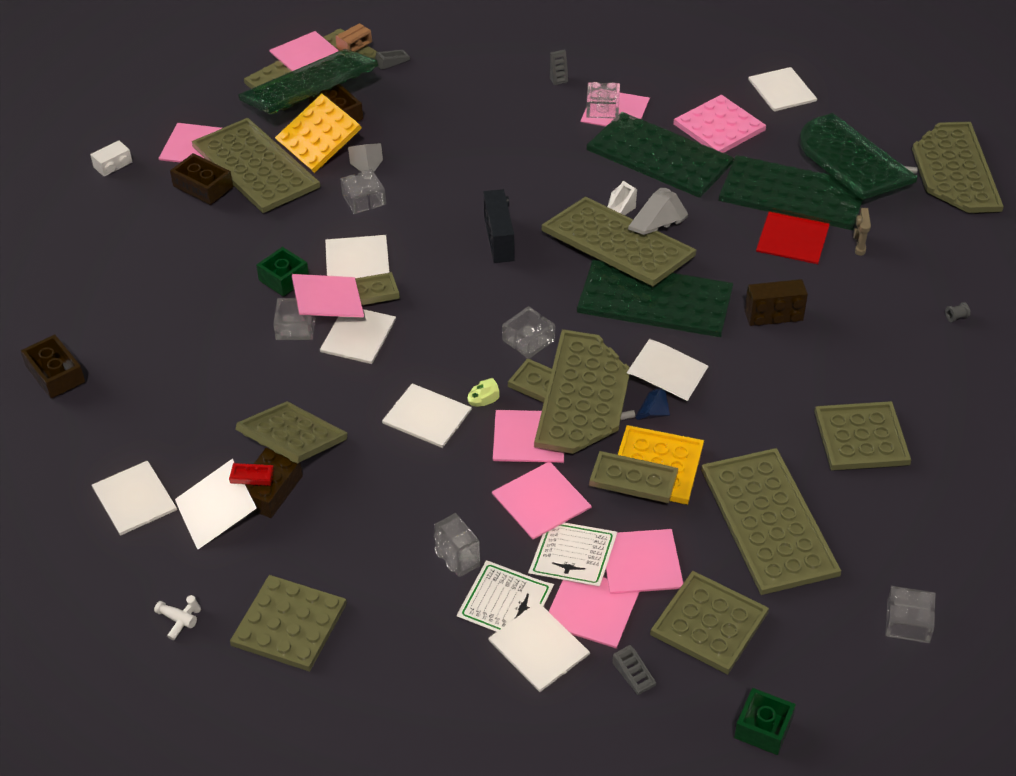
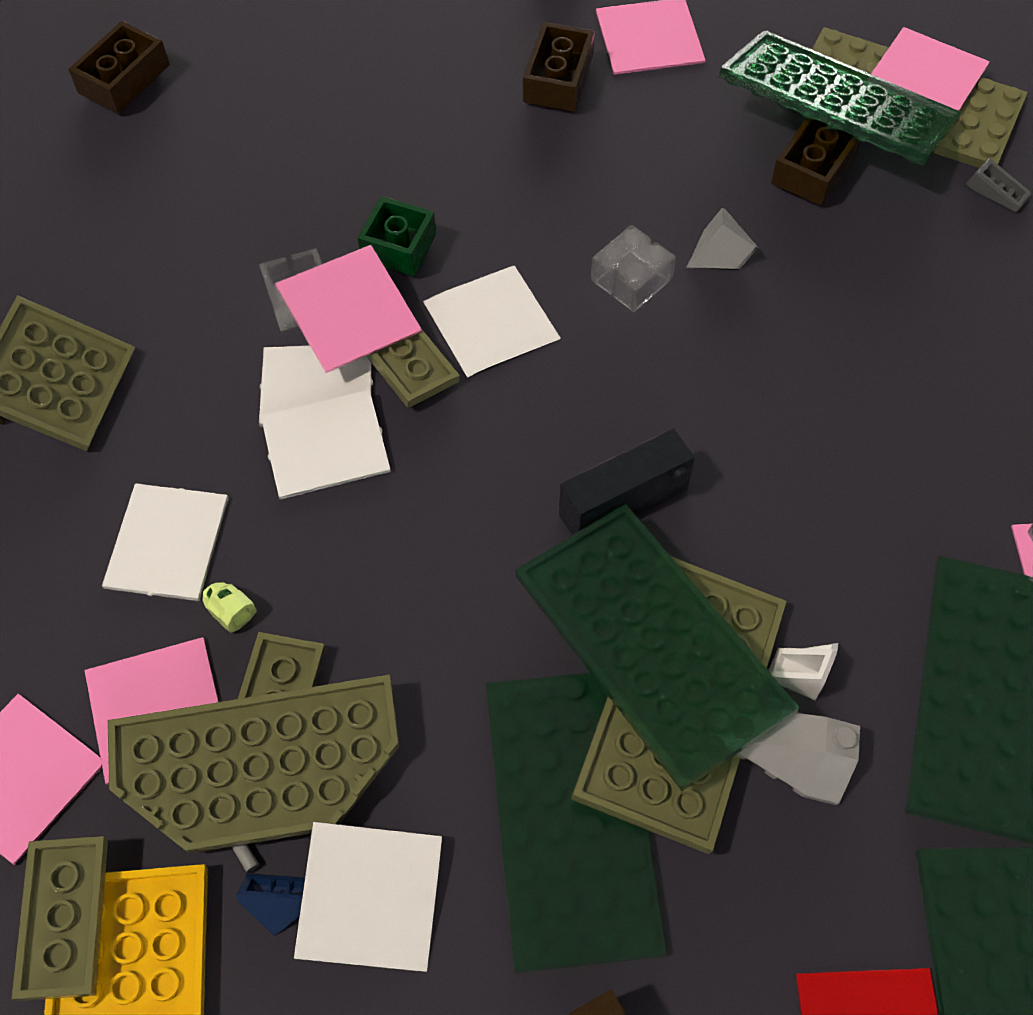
camera: 70 degrees right, 15 degrees up
(256, 164) = (629, 118): olive plate -> none
(318, 133) = (733, 158): yellow plate -> none
(354, 38) = (994, 114): medium nougat brick -> none
(401, 337) = (325, 444): none -> white piece
(527, 334) = (382, 626): clear piece -> none
(590, 234) = (656, 646): none -> clear green plate

